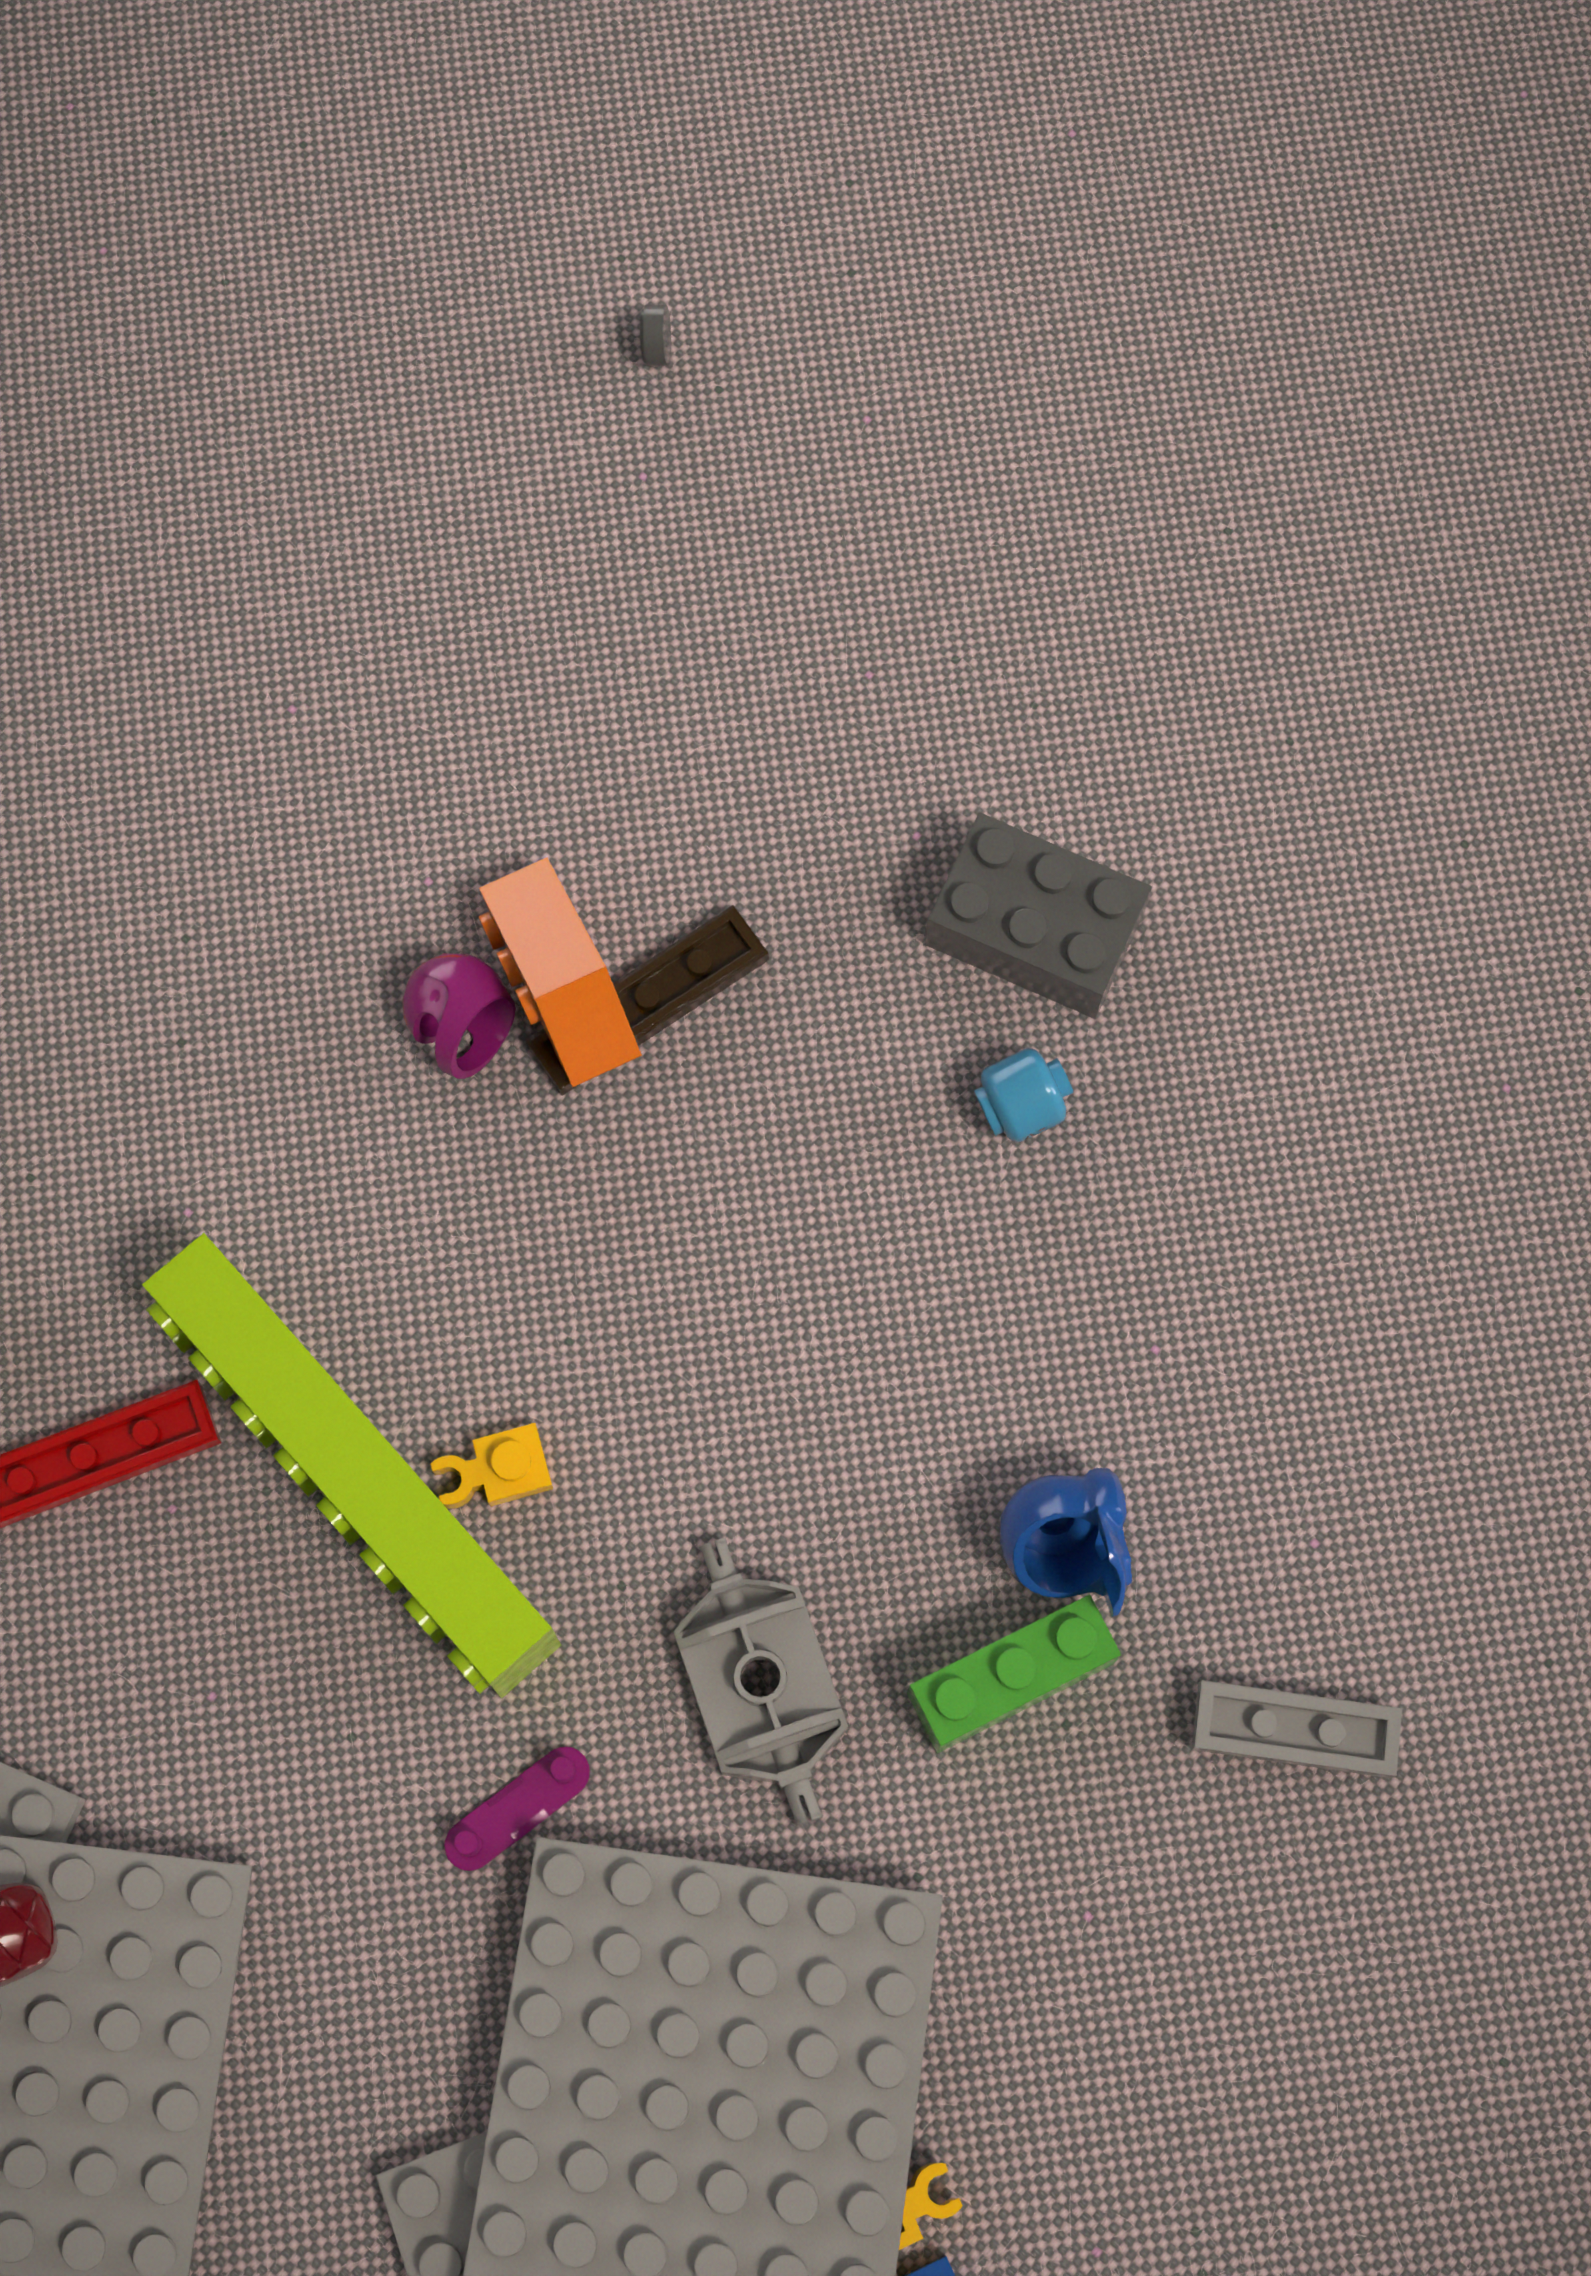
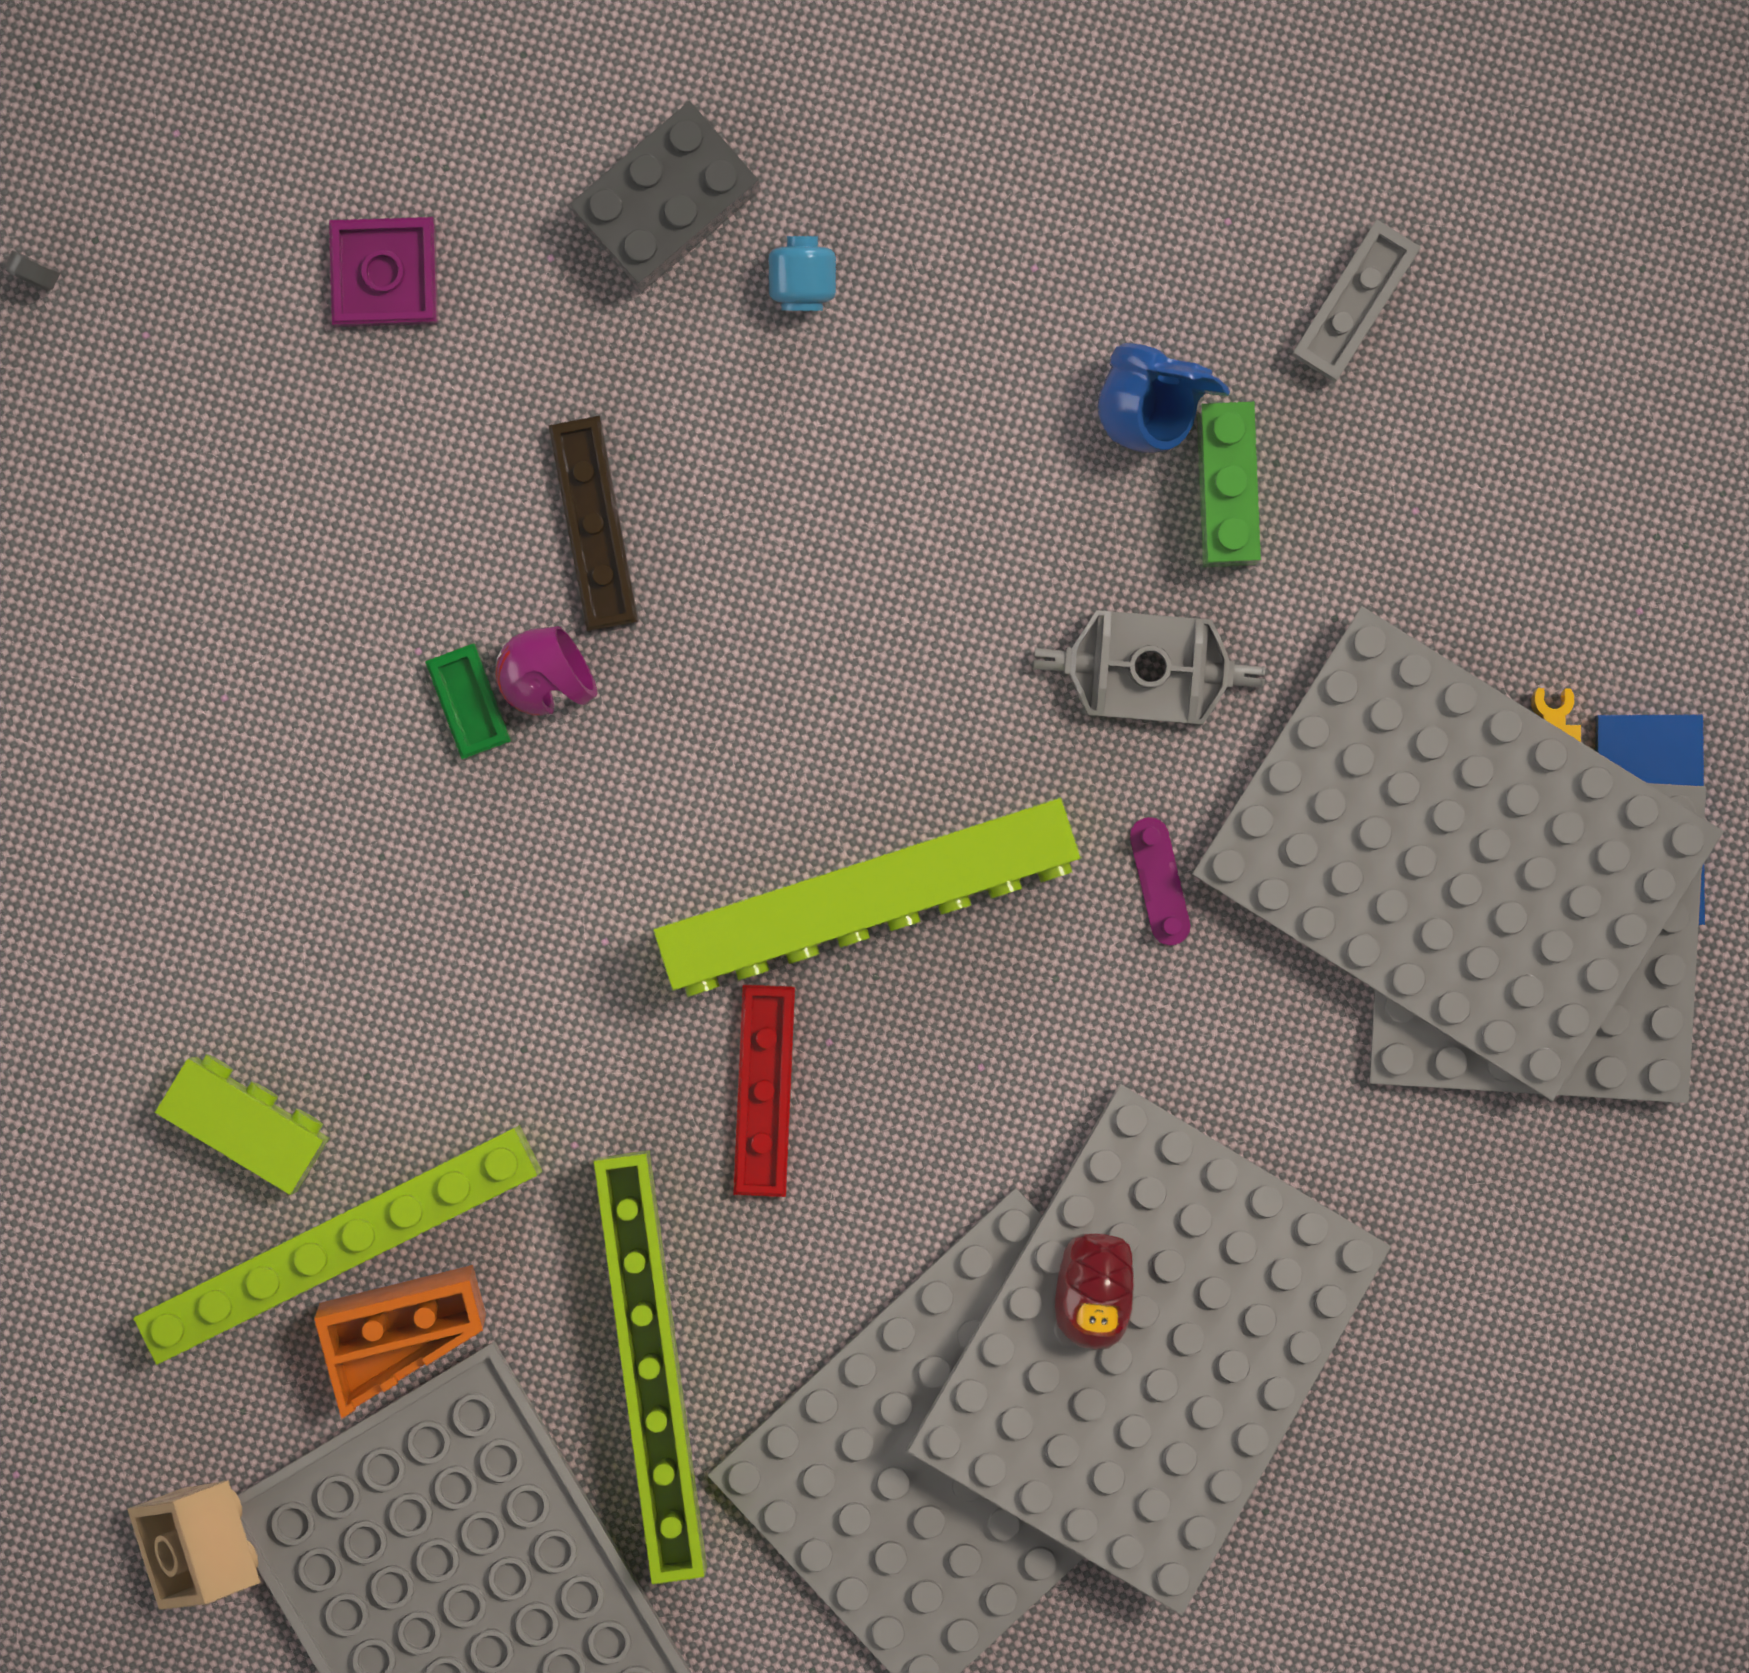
camera: 60 degrees left, 15 degrees up
(391, 951) = (468, 701): none -> green tile
(505, 1465) = (908, 784): yellow plate -> none
(559, 971) = (547, 582): orange wedge -> none
(819, 674) = (383, 271): none -> magenta tile

